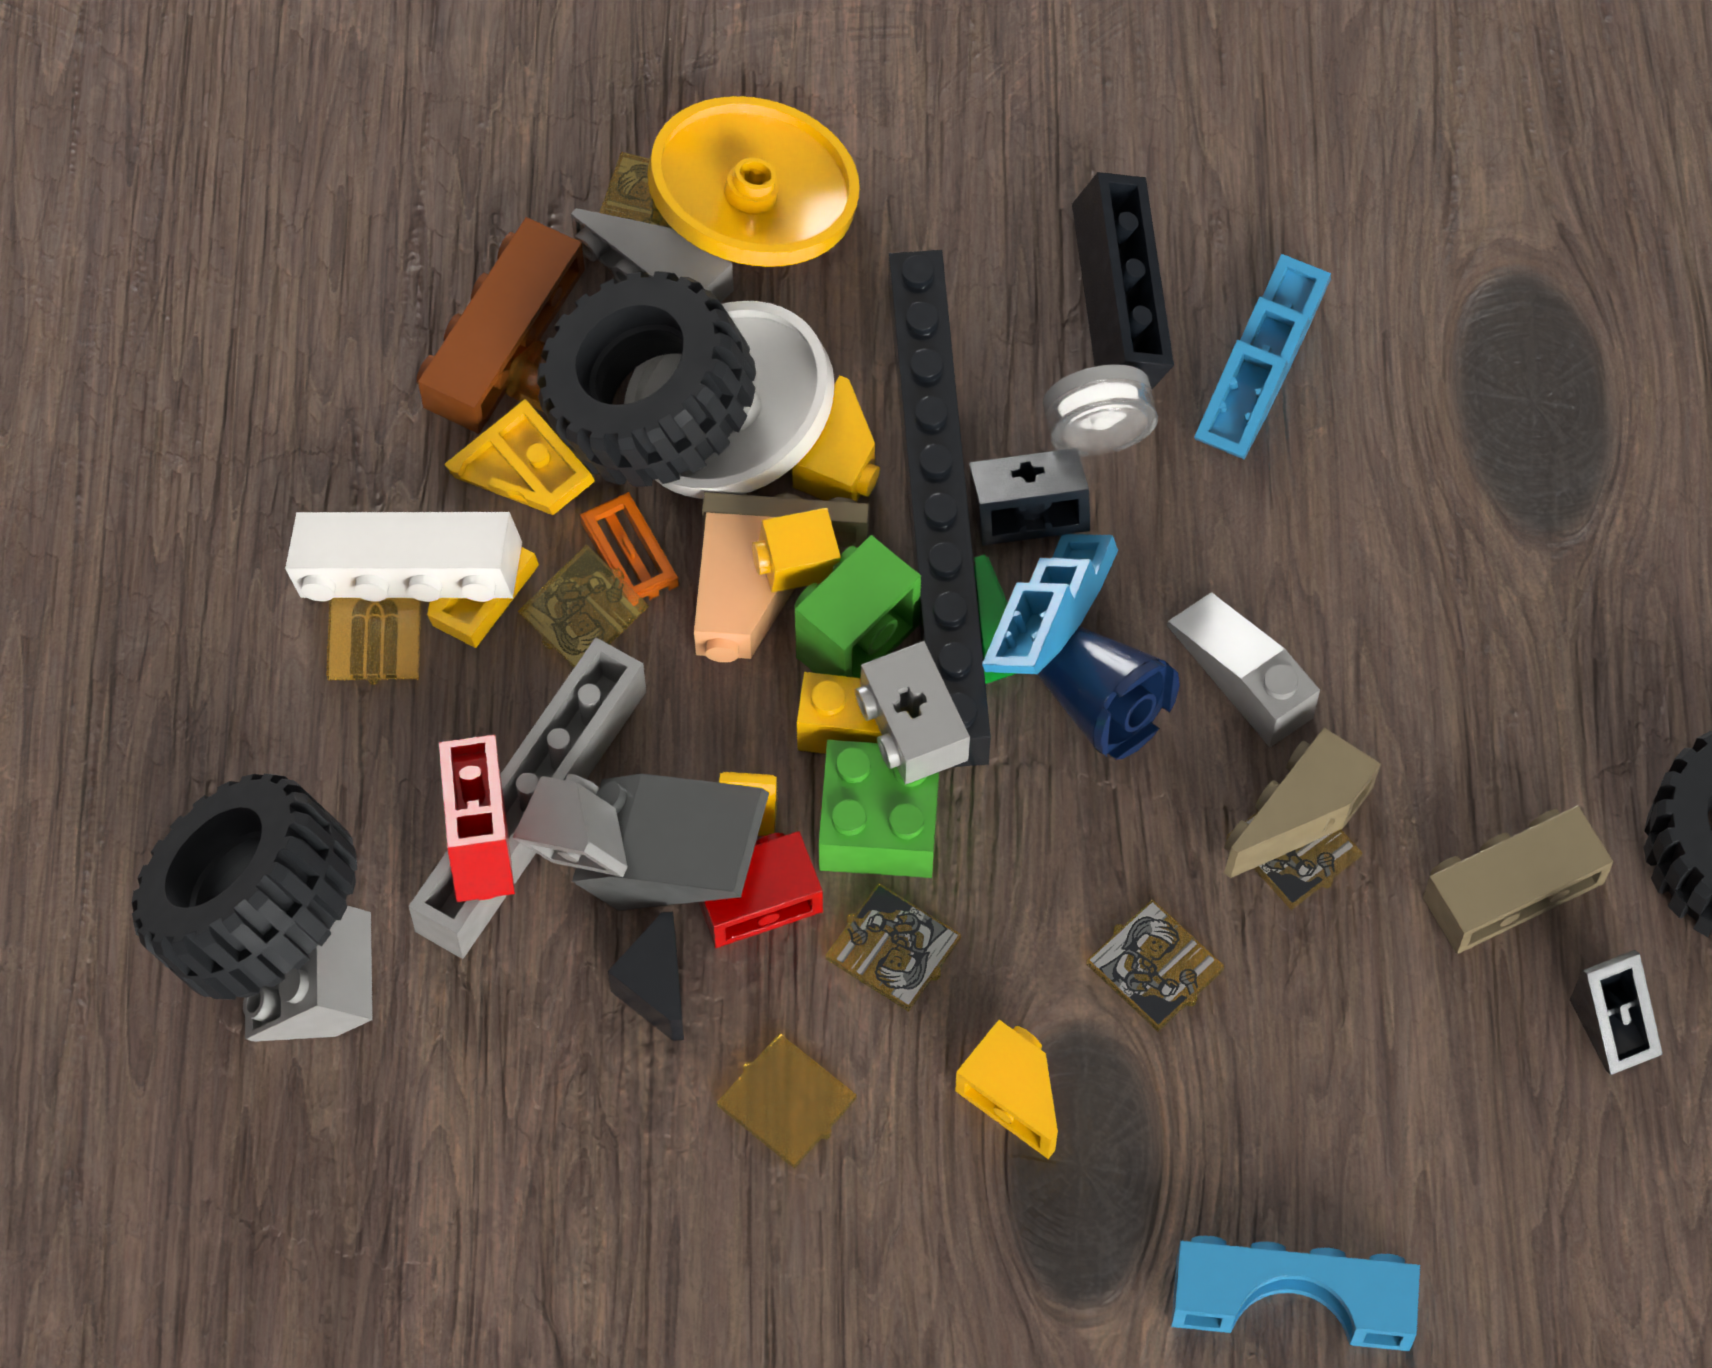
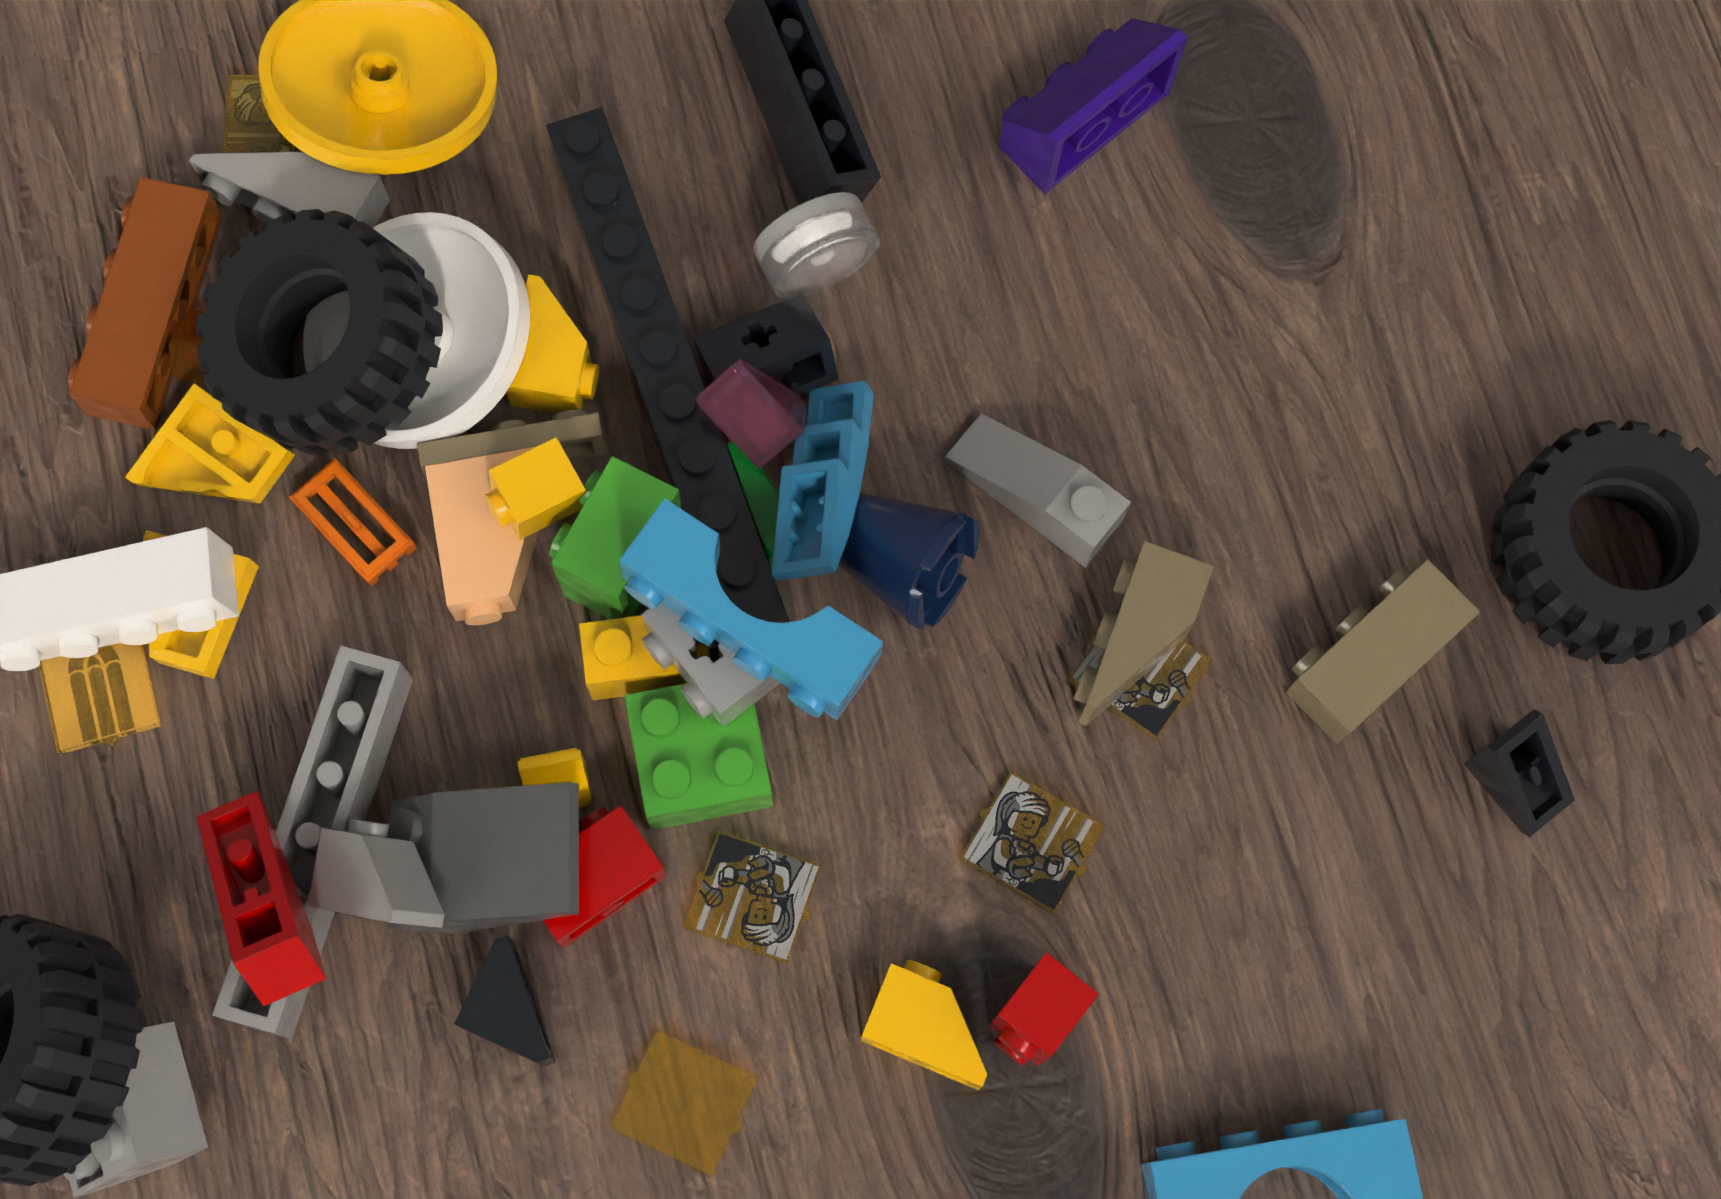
camera: 20 degrees left, 10 degrees up
(581, 604) = (319, 602): clear yellow piece -> none
(999, 730) = (815, 657): none -> dark azure arch
(1004, 531) = (754, 411): none -> clear pink slope
(1119, 1092) = (1041, 1012): none -> red brick
(1263, 357) = (966, 141): dark azure slope -> none
(1385, 348) = (1091, 100): none -> dark purple slope

